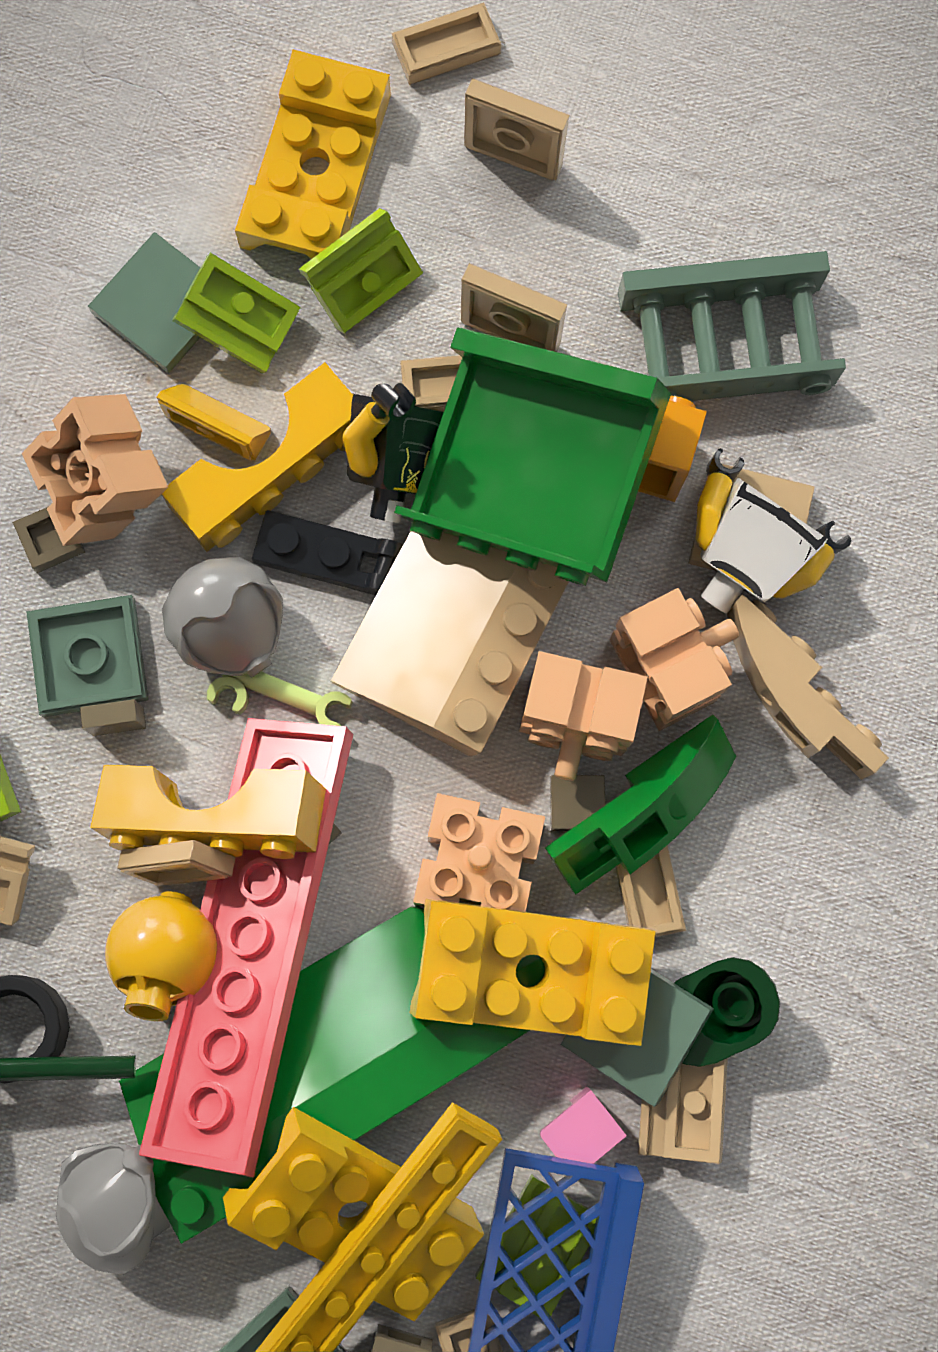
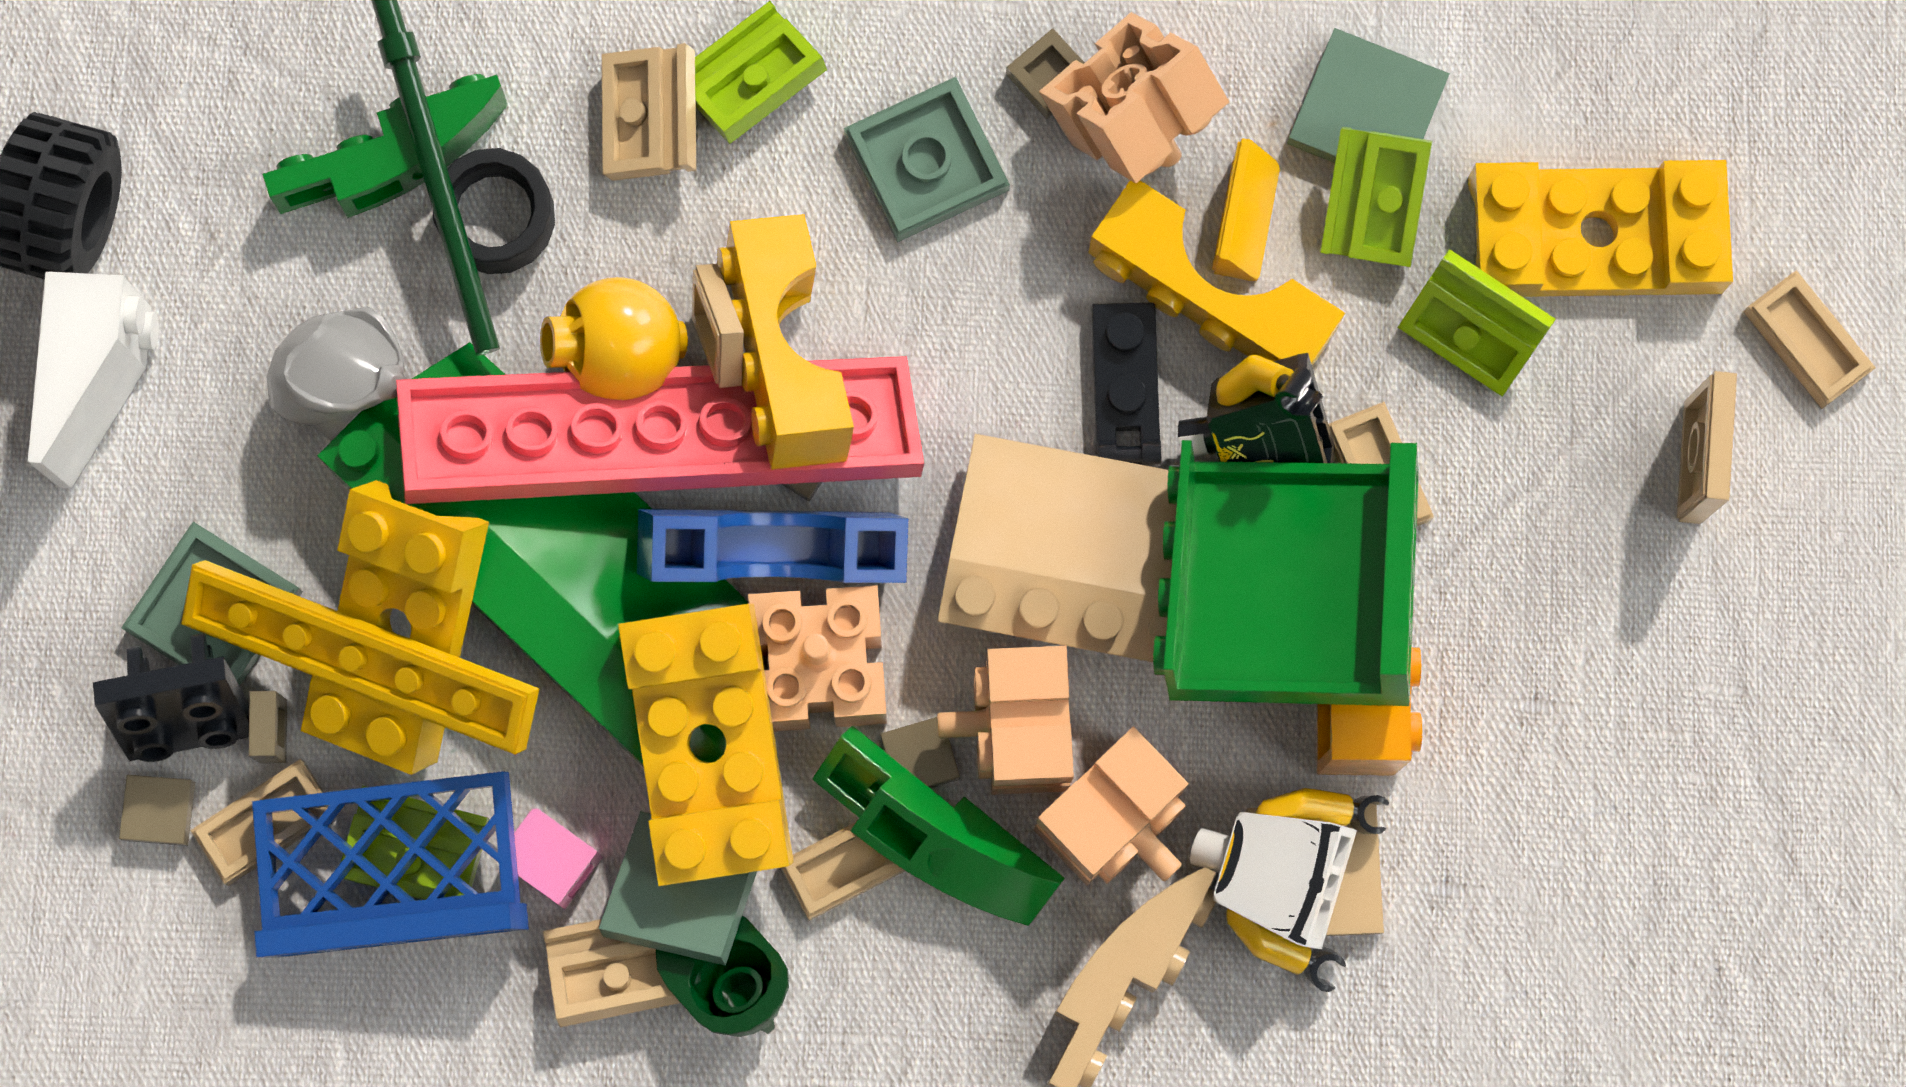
camera: 75 degrees right, 0 degrees up
(113, 717) = (862, 209): dark tan tile -> none
(224, 617) = (1010, 292): light grey helmet -> none
(280, 691) = (955, 335): yellowish green bar -> none
(364, 916) = (771, 544): none -> blue arch
(510, 310) = (1474, 509): tan tile -> none
(746, 283) = (1585, 727): sand green fence -> none

